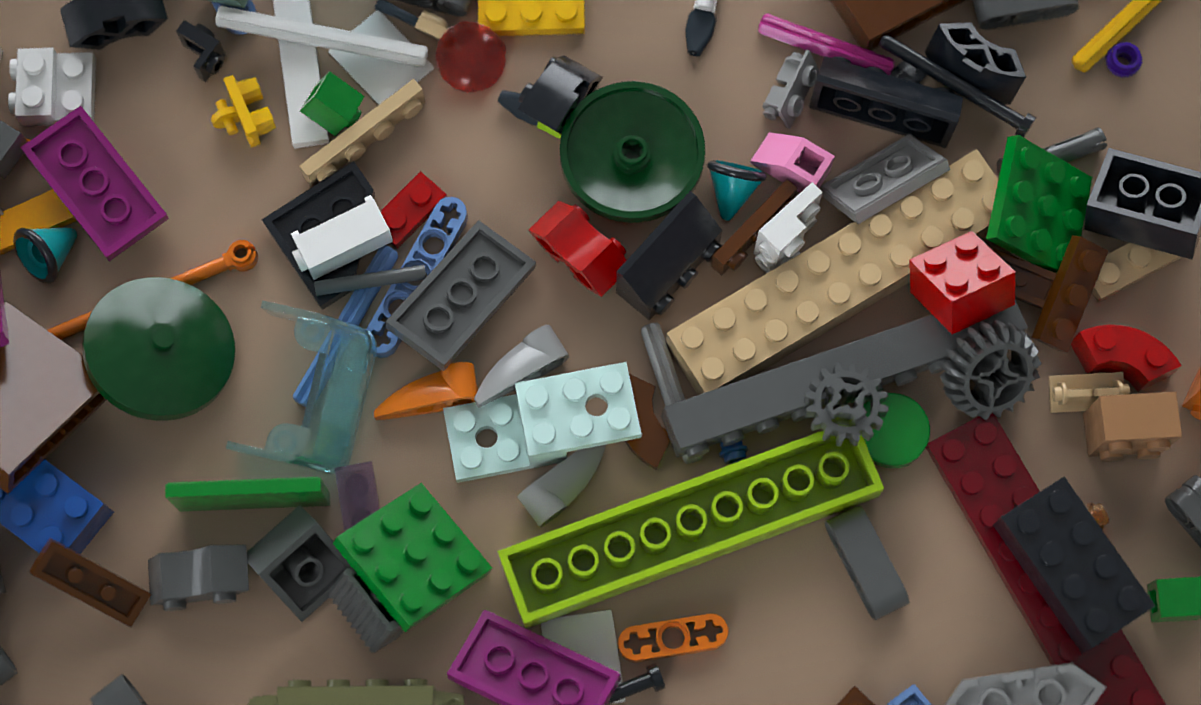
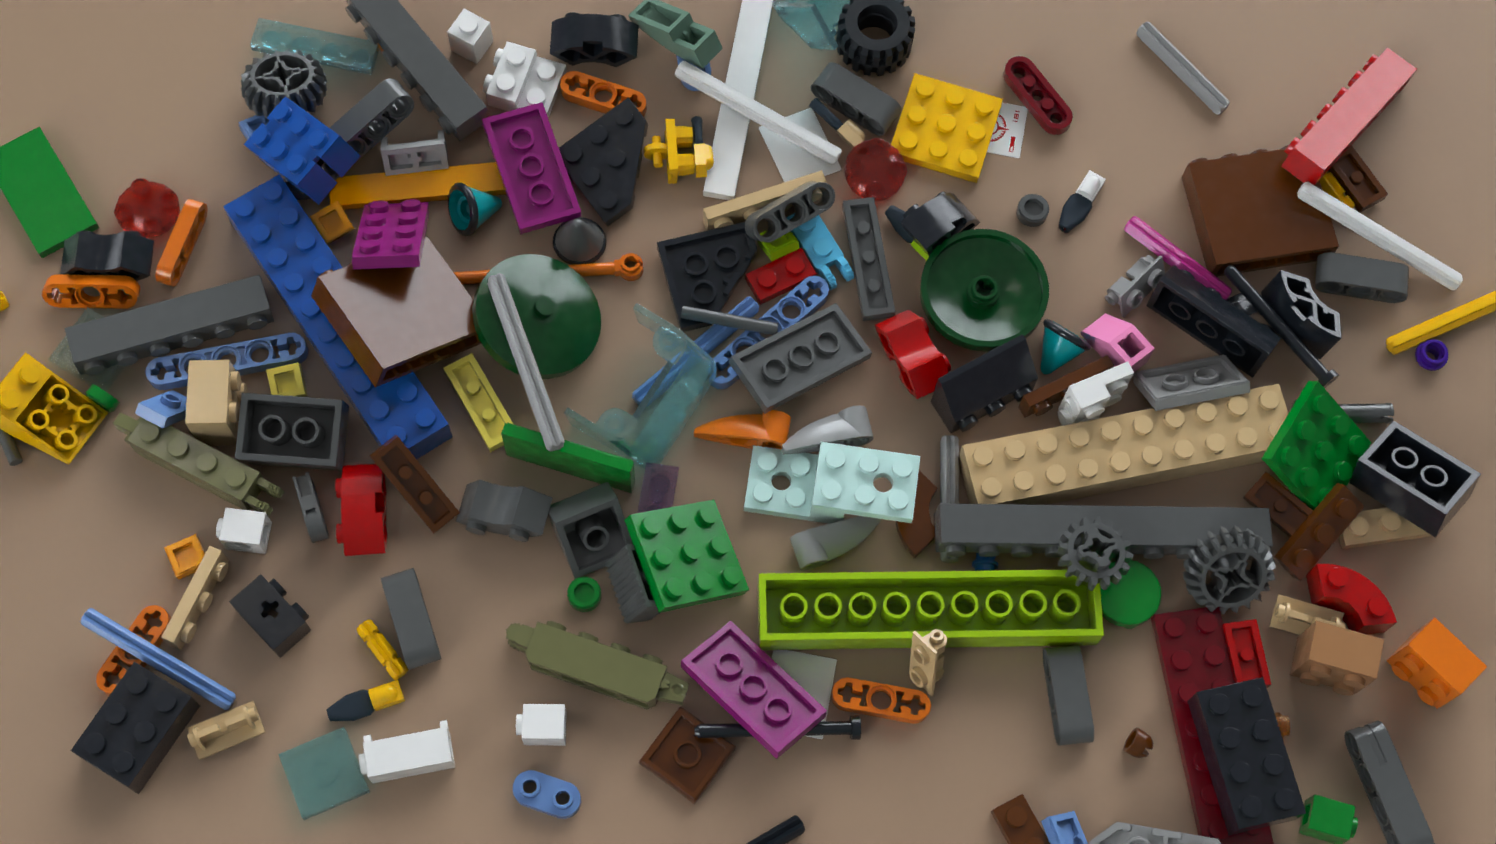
camera: 15 degrees right, 5 degrees down
(43, 631) = (362, 510): none -> red brick
(120, 83) = (579, 96): none -> orange beam
(128, 462) = (478, 399): none -> light yellow plate
(164, 409) = (525, 362): none -> light grey axle
(176, 145) = (608, 159): none -> black plate
(176, 246) = (579, 241): none -> dark grey hat
(202, 42) = (659, 88): black bracket -> none
(277, 101) = (702, 153): none -> yellow piece
(317, 635) = (584, 594): none -> green tile
(333, 104) = (748, 169): green brick -> none
(341, 239) = (717, 279): white brick -> none
(392, 173) = (780, 246): none -> lime tile
(410, 130) = (804, 211): none -> dark grey beam
(437, 161) = (822, 250): none -> medium azure hinge
(497, 158) = (868, 259): none -> dark grey plate
(654, 43) = (1032, 210): none -> dark grey tile
(707, 579) = (927, 659): none -> tan hinge
(956, 588) = (1137, 742): none -> reddish brown hinge
(962, 282) = (1229, 488): red brick -> none
(1037, 451) = (1246, 651): none -> red plate

